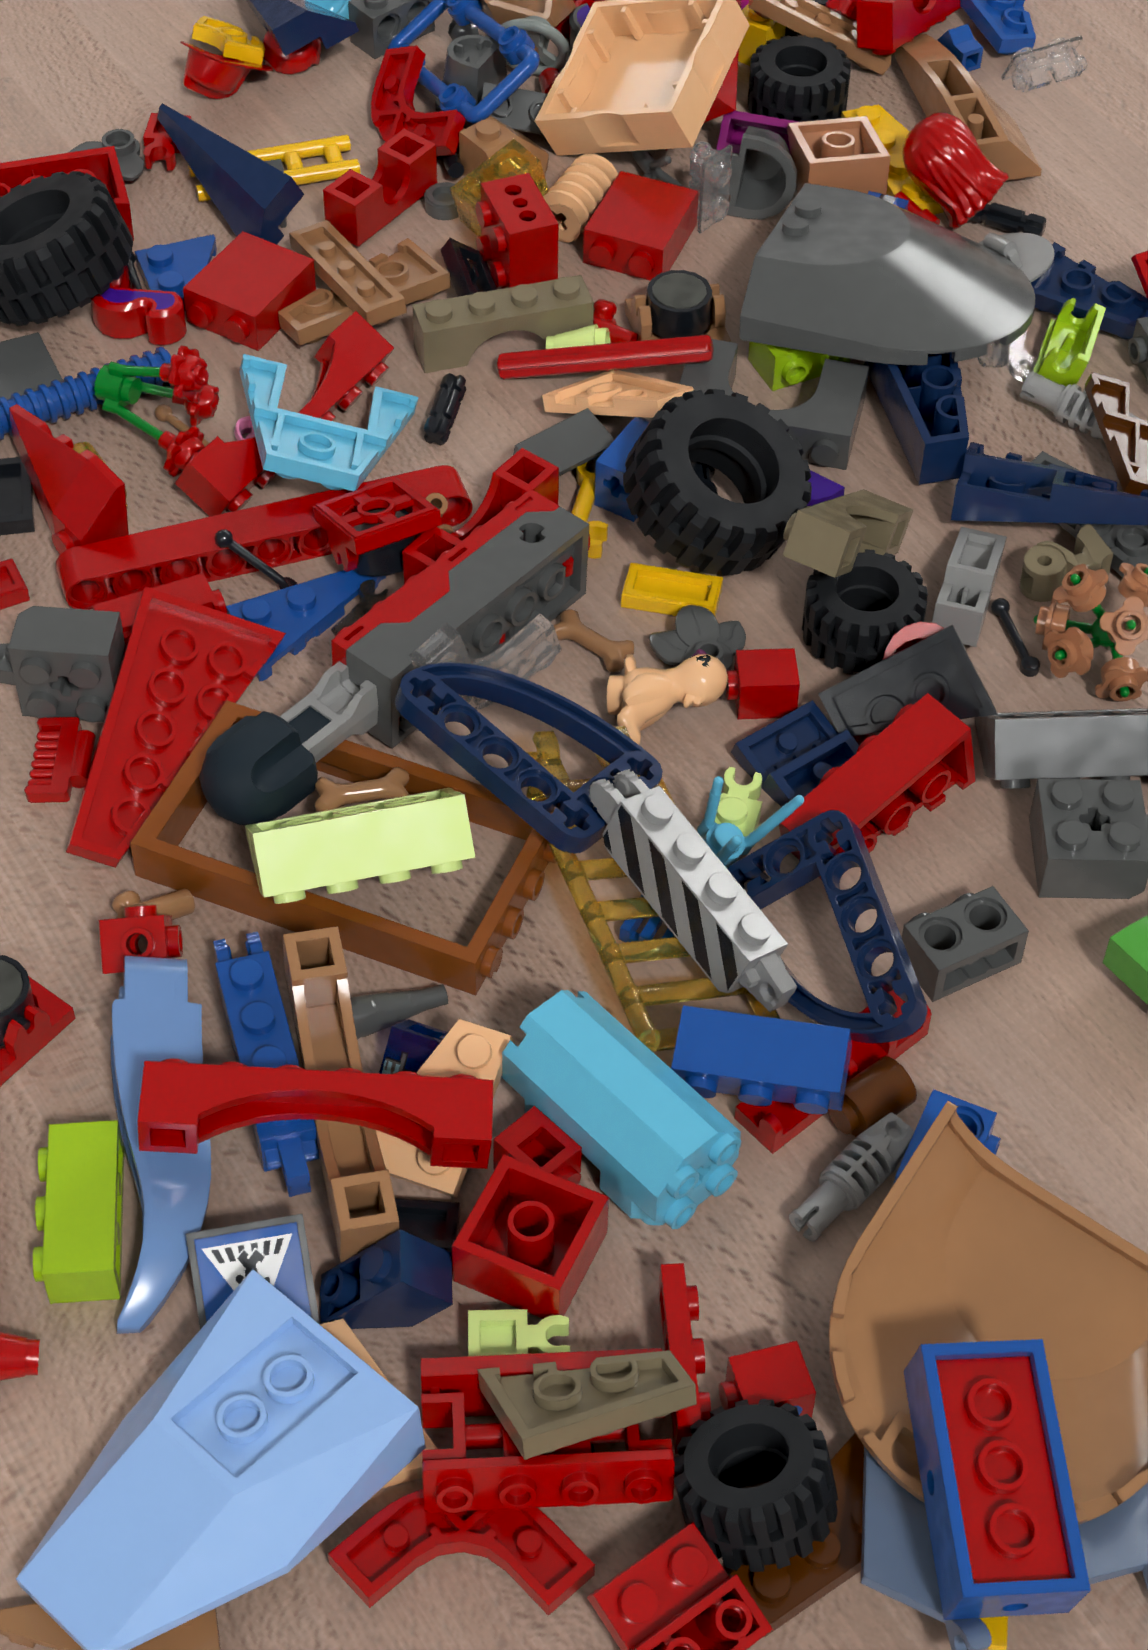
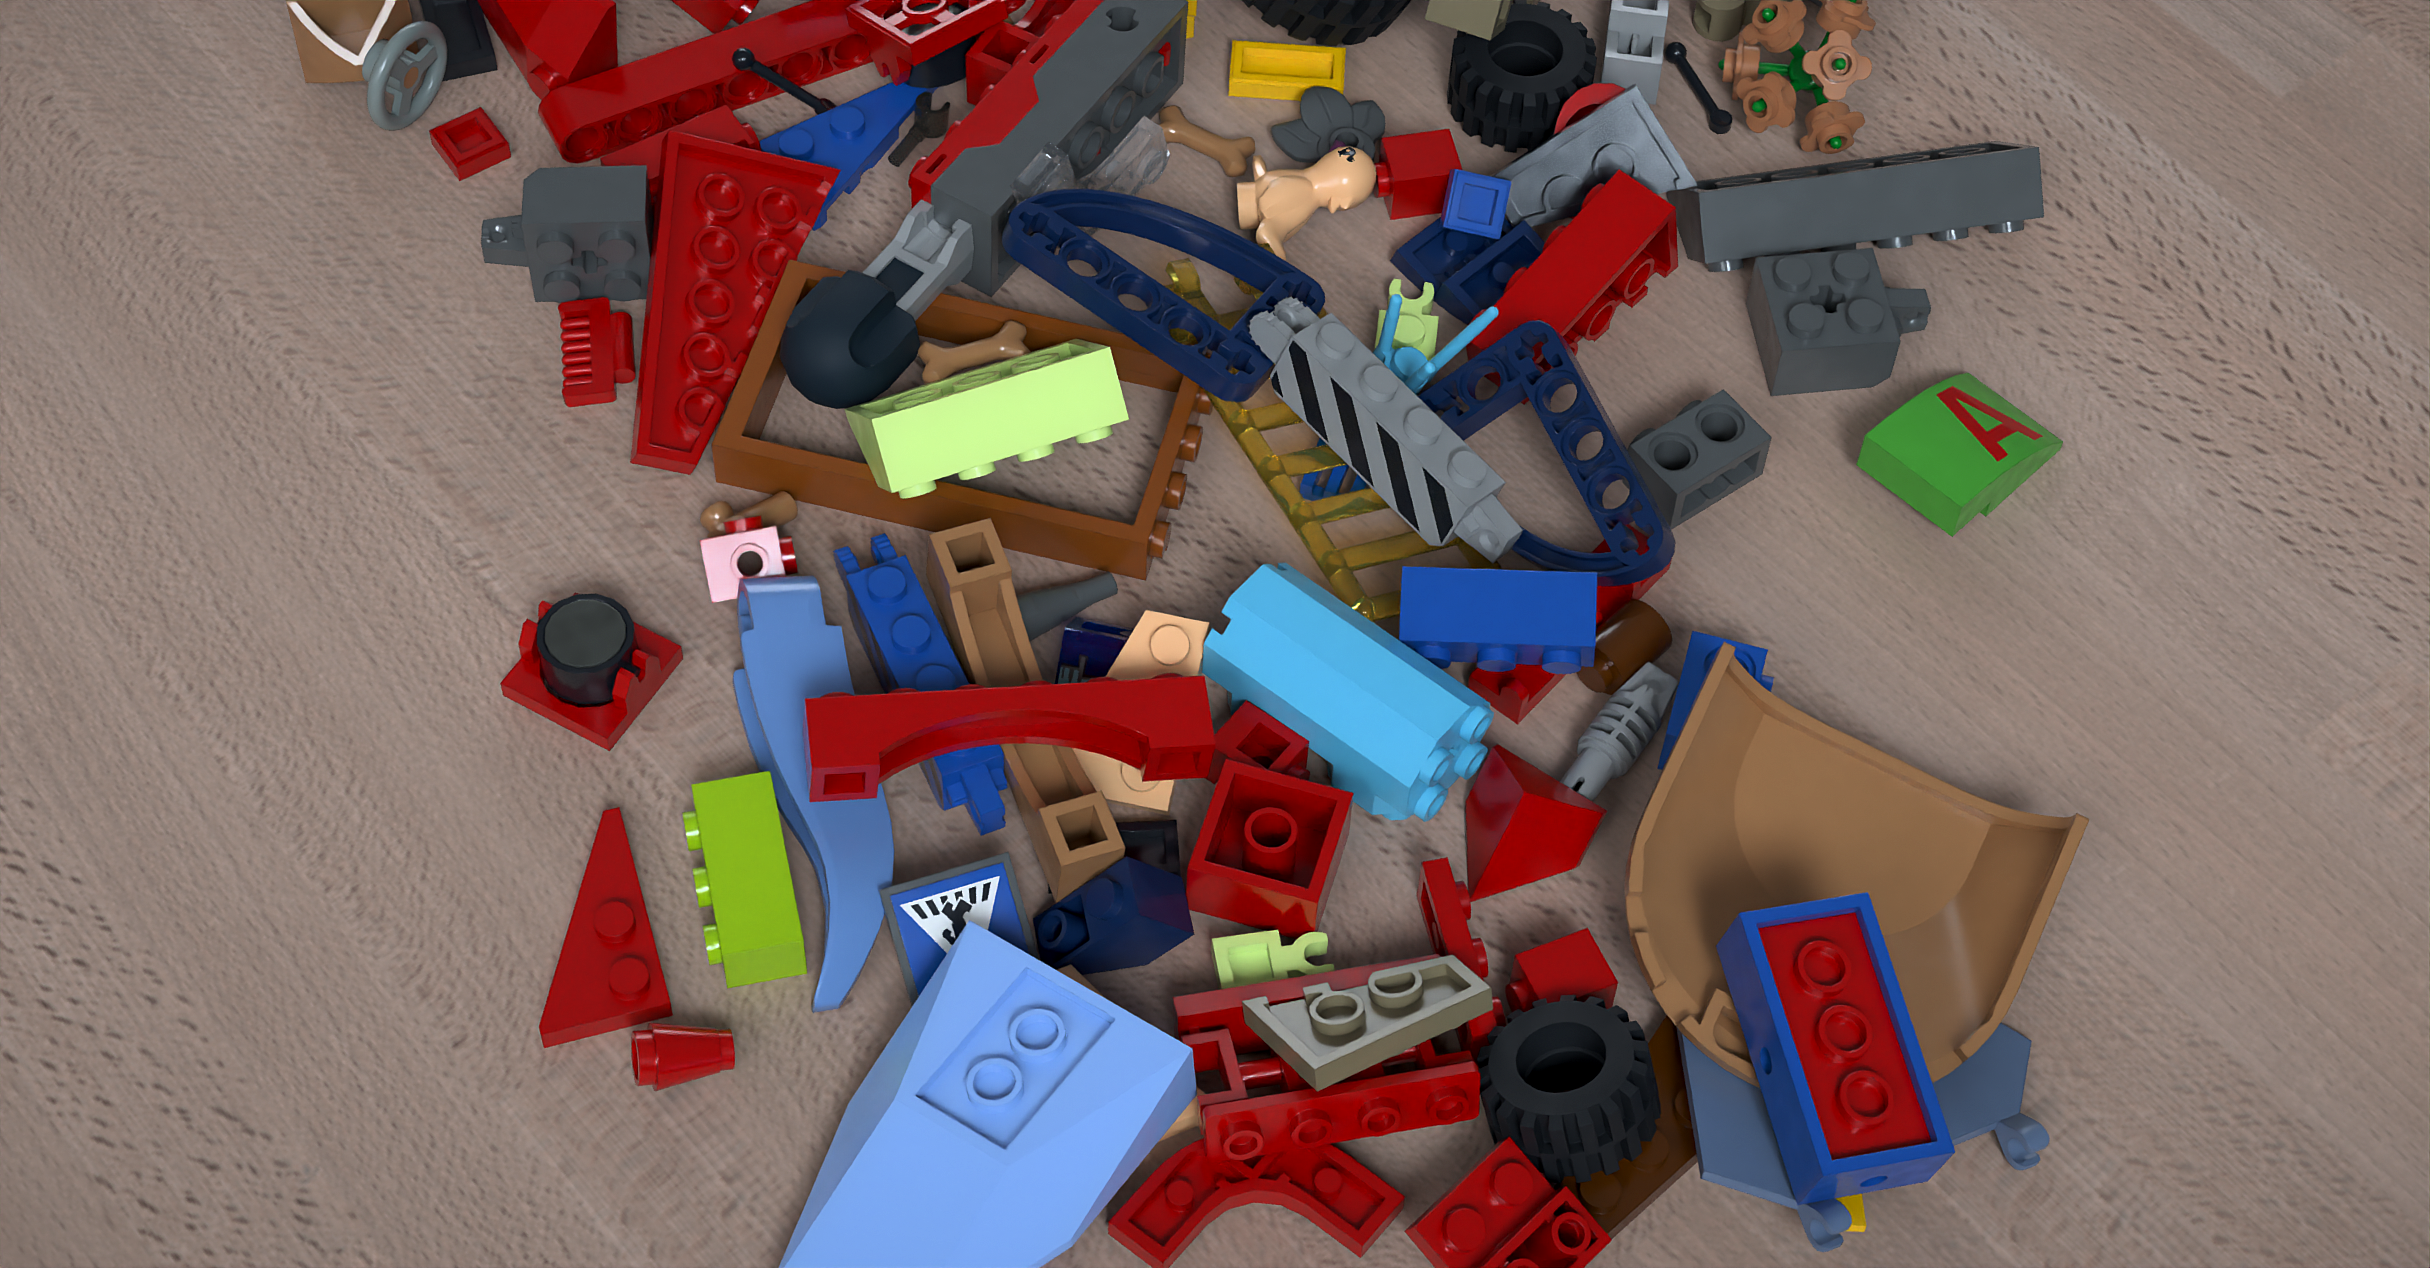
camera: 10 degrees left, 5 degrees up
(760, 1243) = (1523, 826): none -> red slope
(806, 712) = (1475, 204): none -> blue tile

